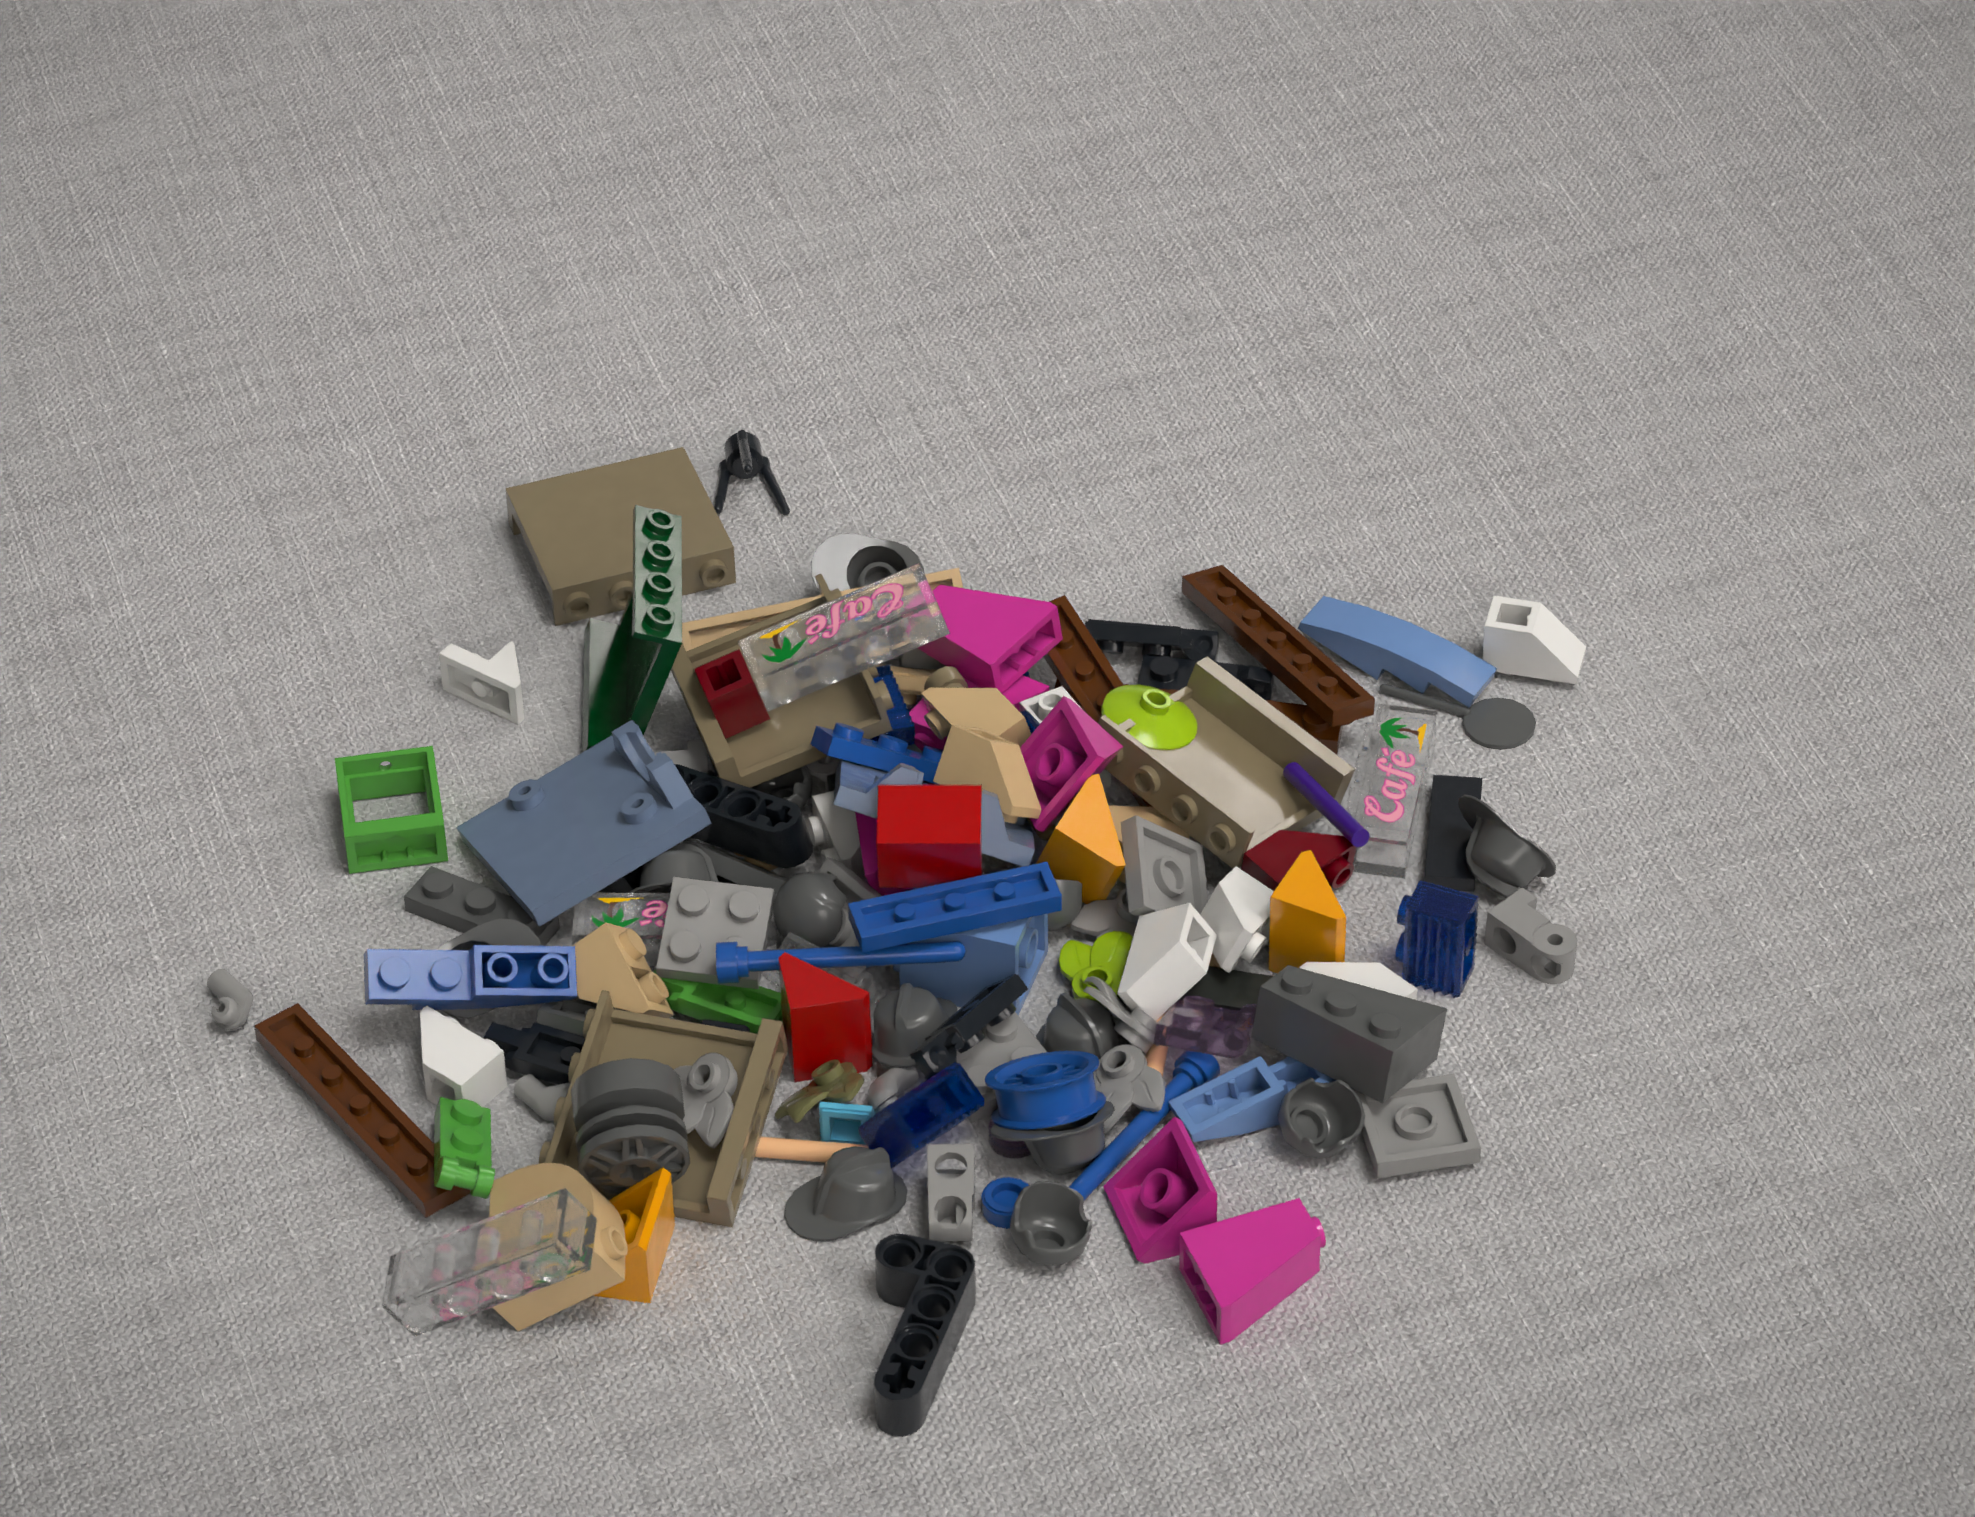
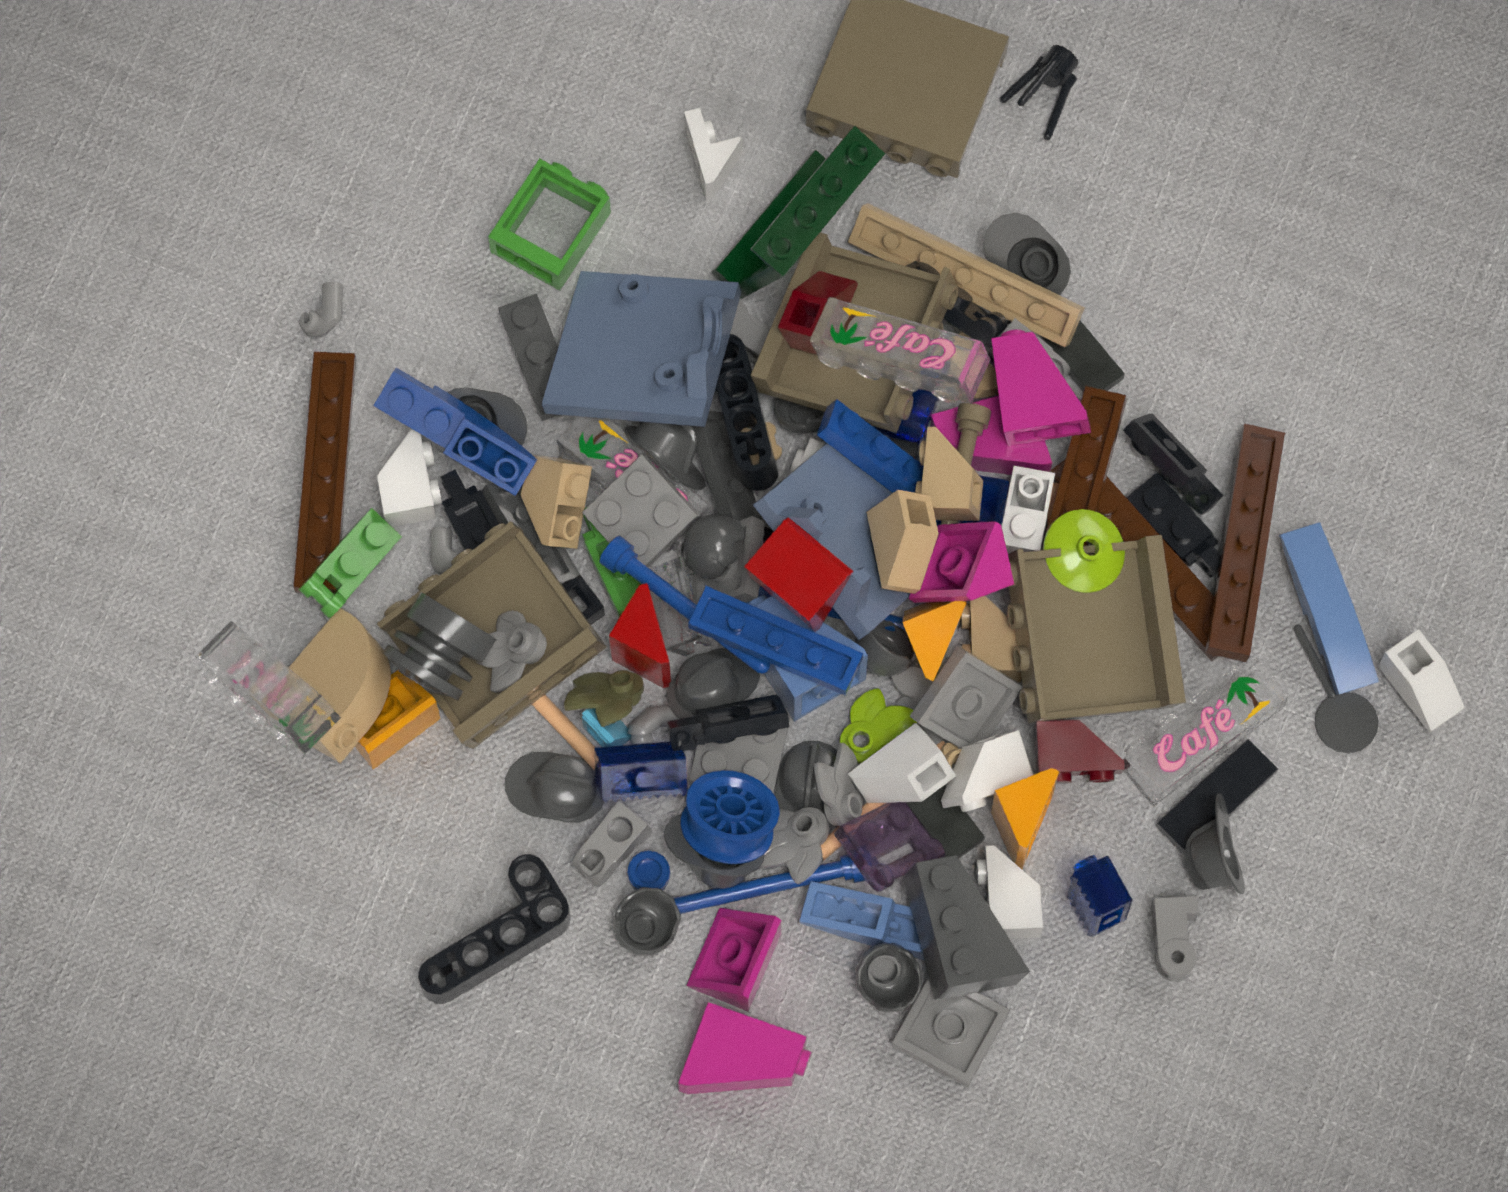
camera: 40 degrees right, 30 degrees up
(1326, 804) = (1134, 719): dark purple bar -> none

